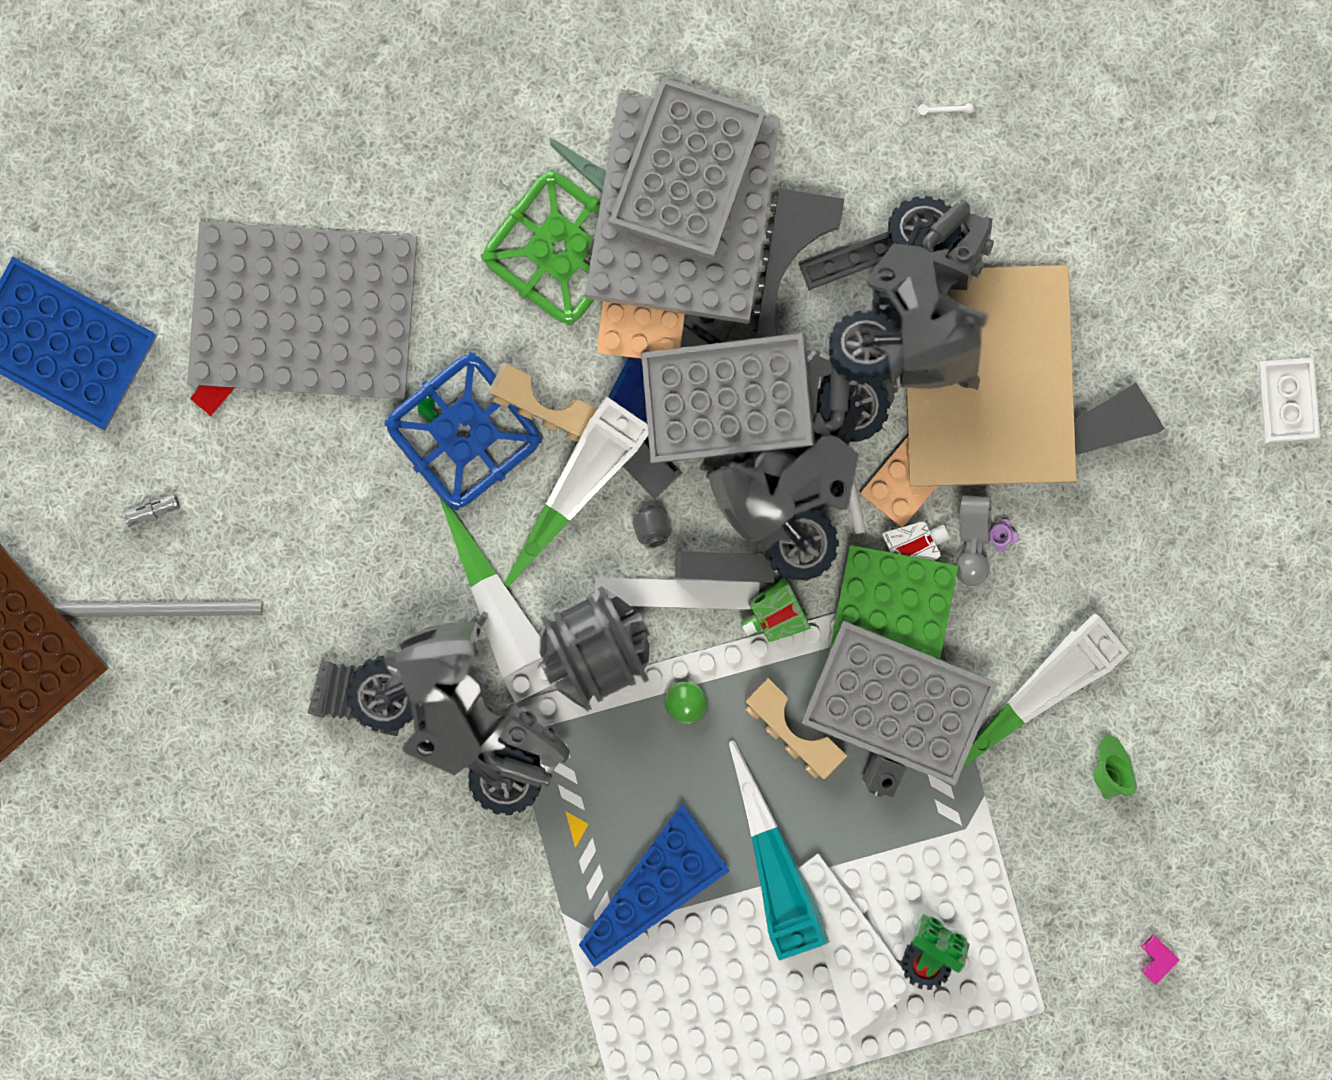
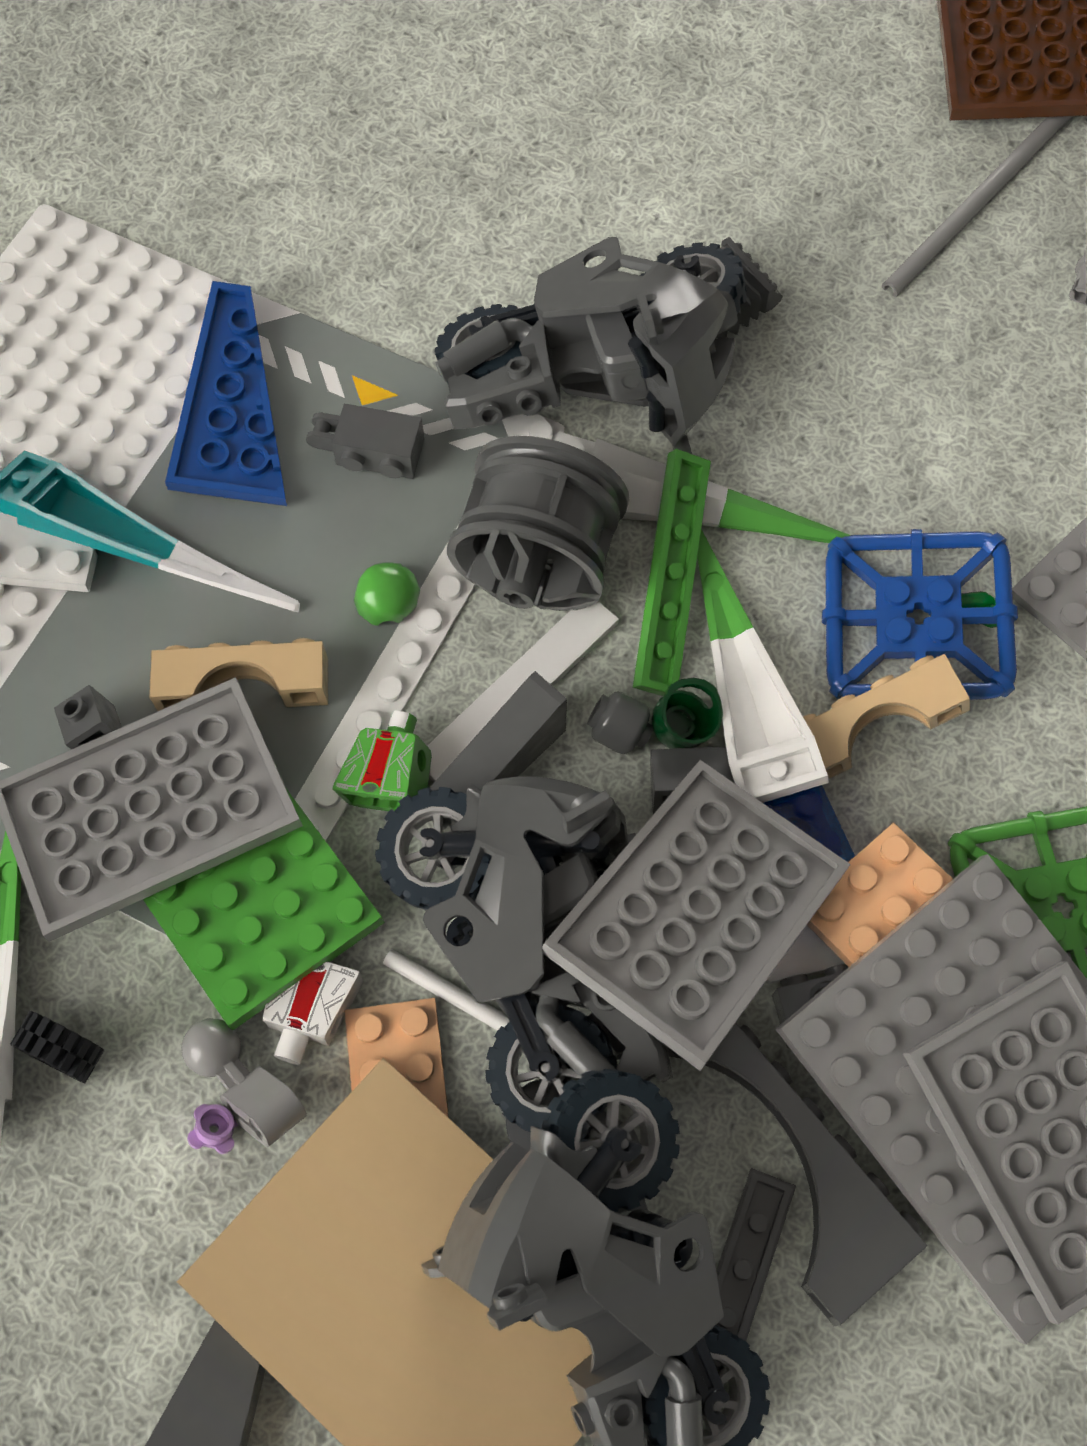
camera: 130 degrees right, 20 degrees down
(550, 569) = (672, 572): none -> bright green plate
(610, 791) = (370, 440): none -> dark grey brick
(627, 504) = (671, 714): none -> dark green helmet
(1034, 633) = (57, 1046): none -> black tyre

